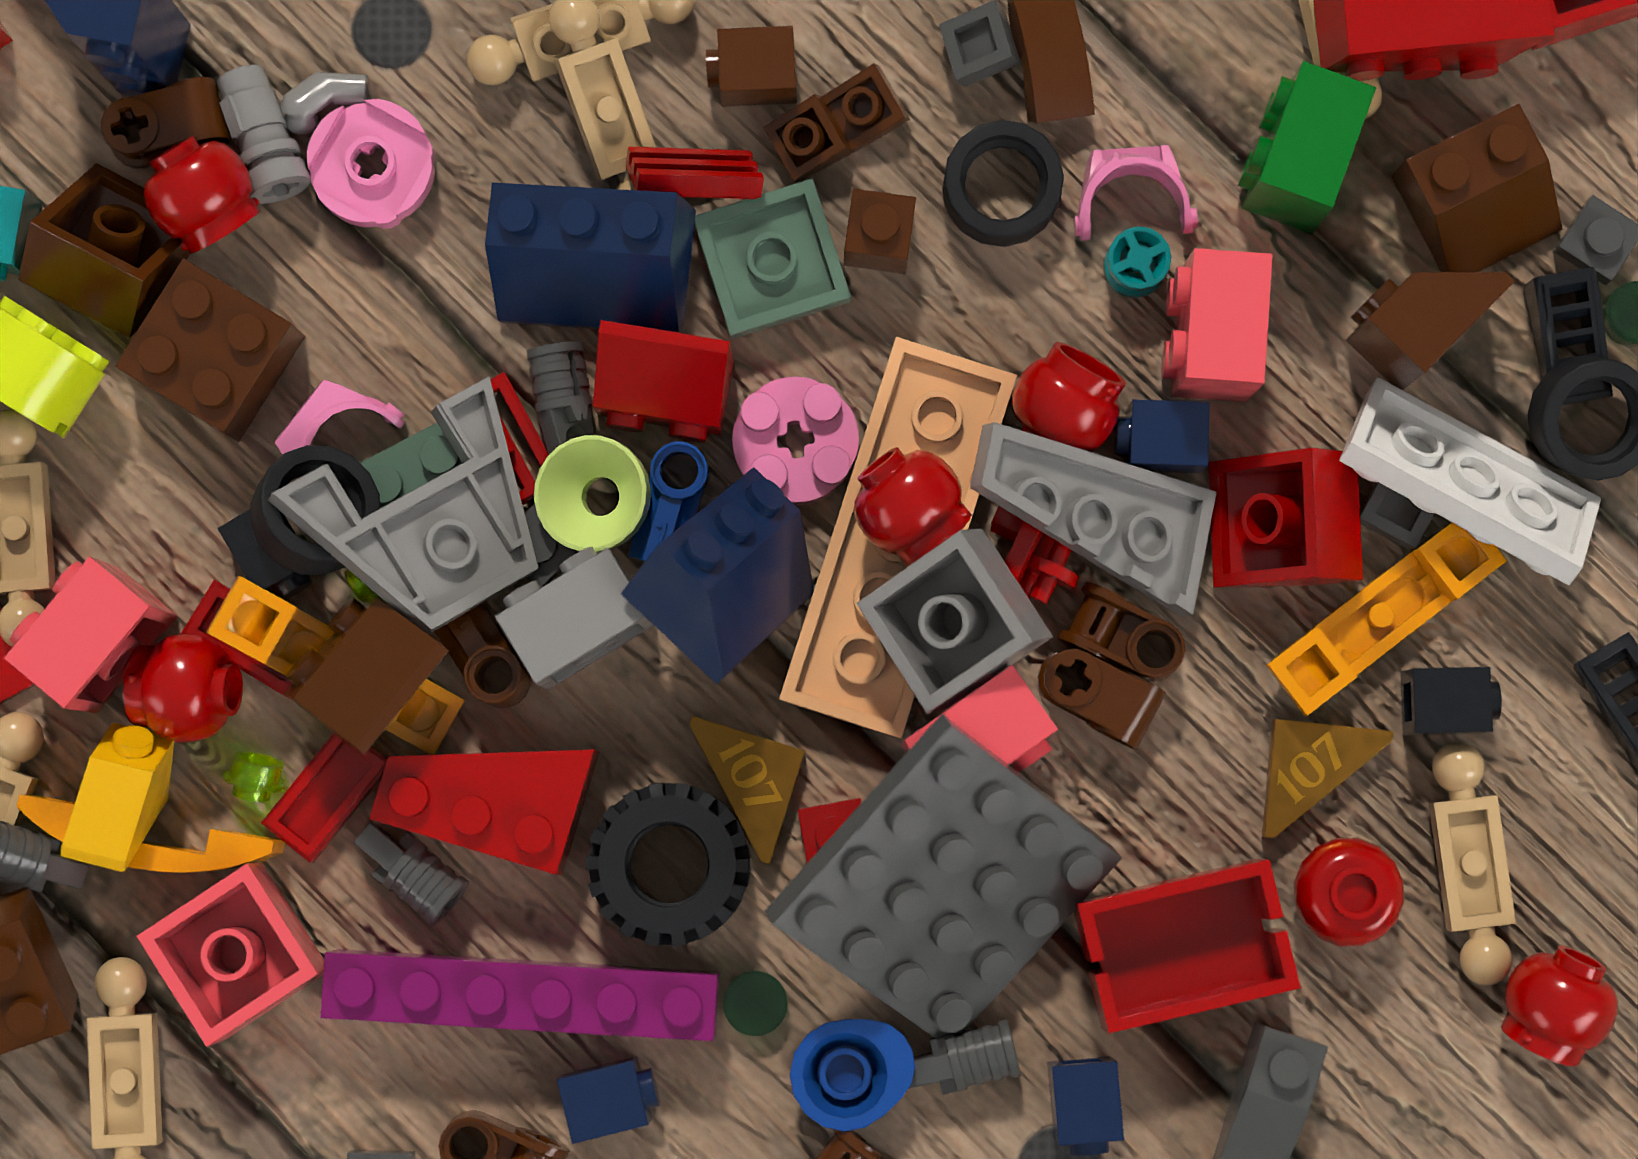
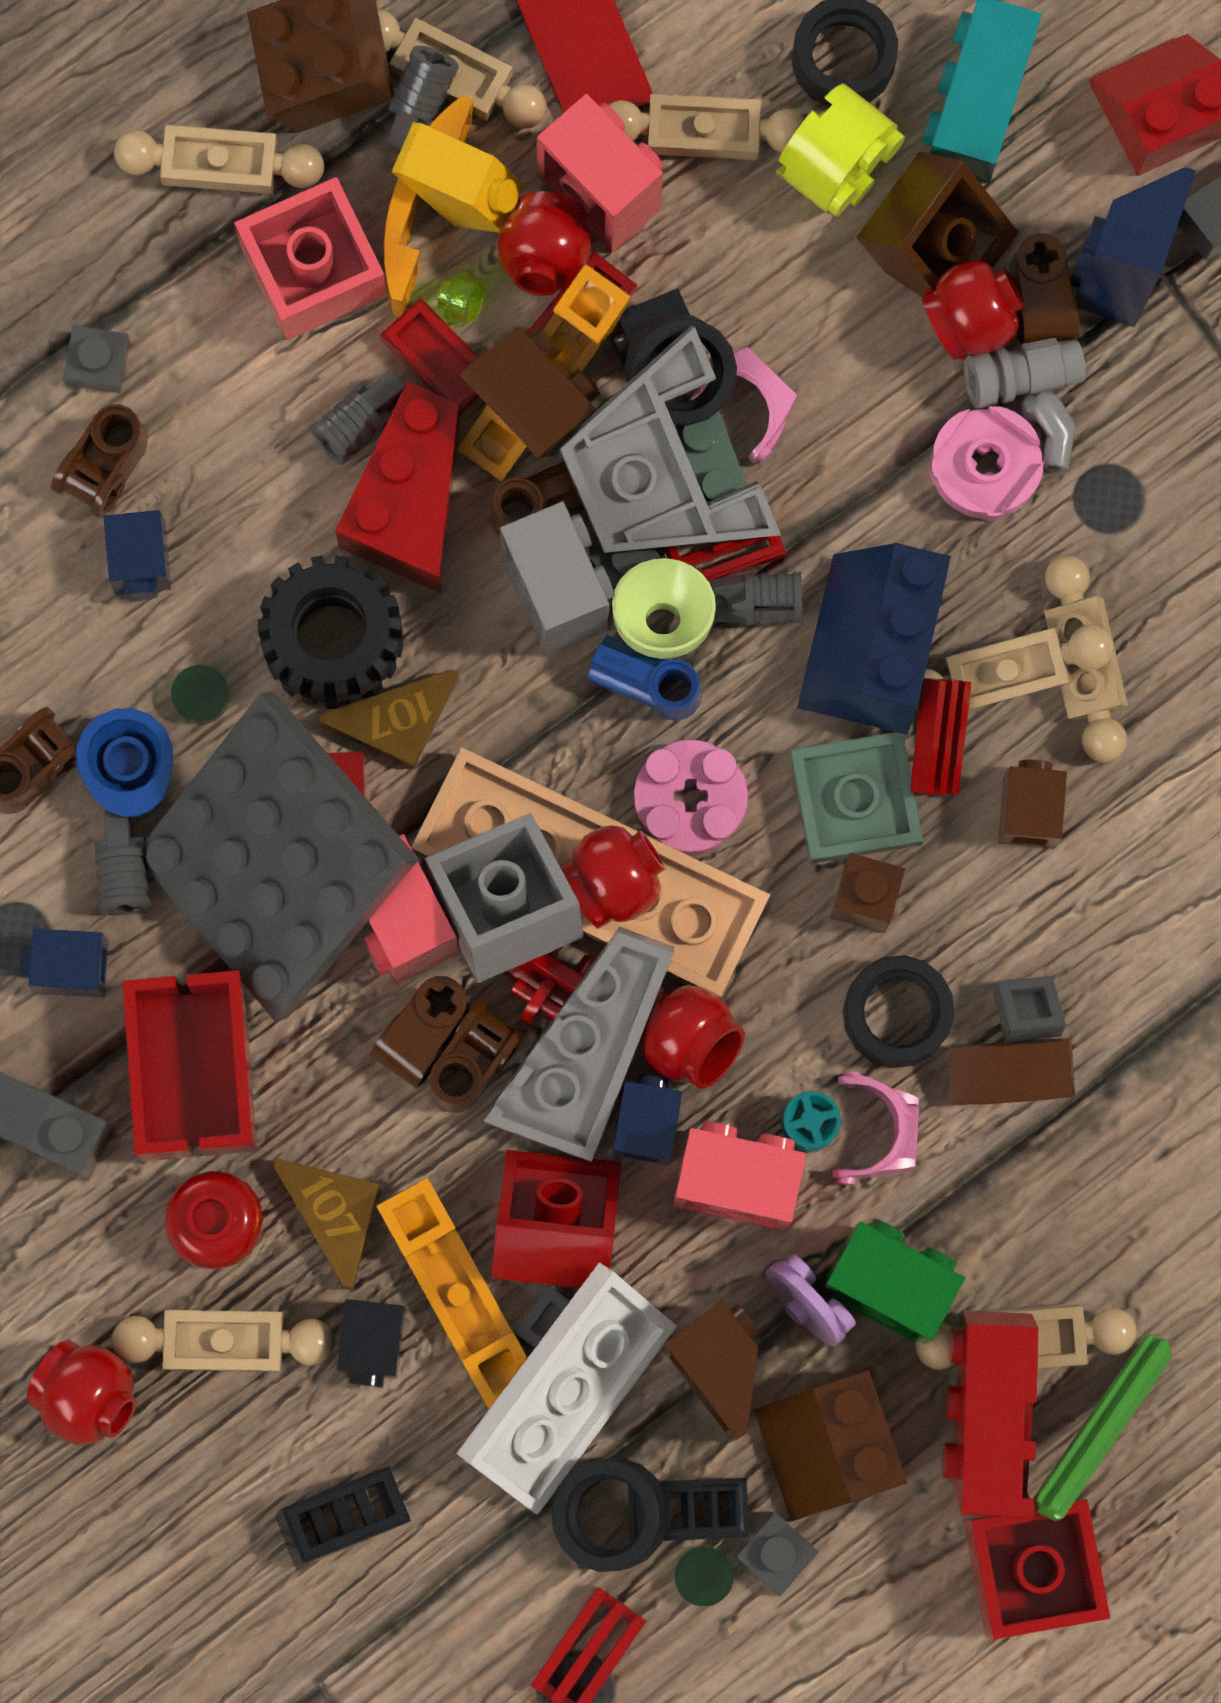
camera: 90 degrees right, 5 degrees down
(210, 350) = (835, 304): reddish brown brick -> none
(520, 994) = (238, 495): magenta brick -> none
(662, 380) = (755, 682): red slope -> none
(727, 575) = (572, 709): dark blue slope -> none
(837, 123) = (973, 873): reddish brown slope -> none
(1326, 248) = (792, 1285): none -> lavender piece

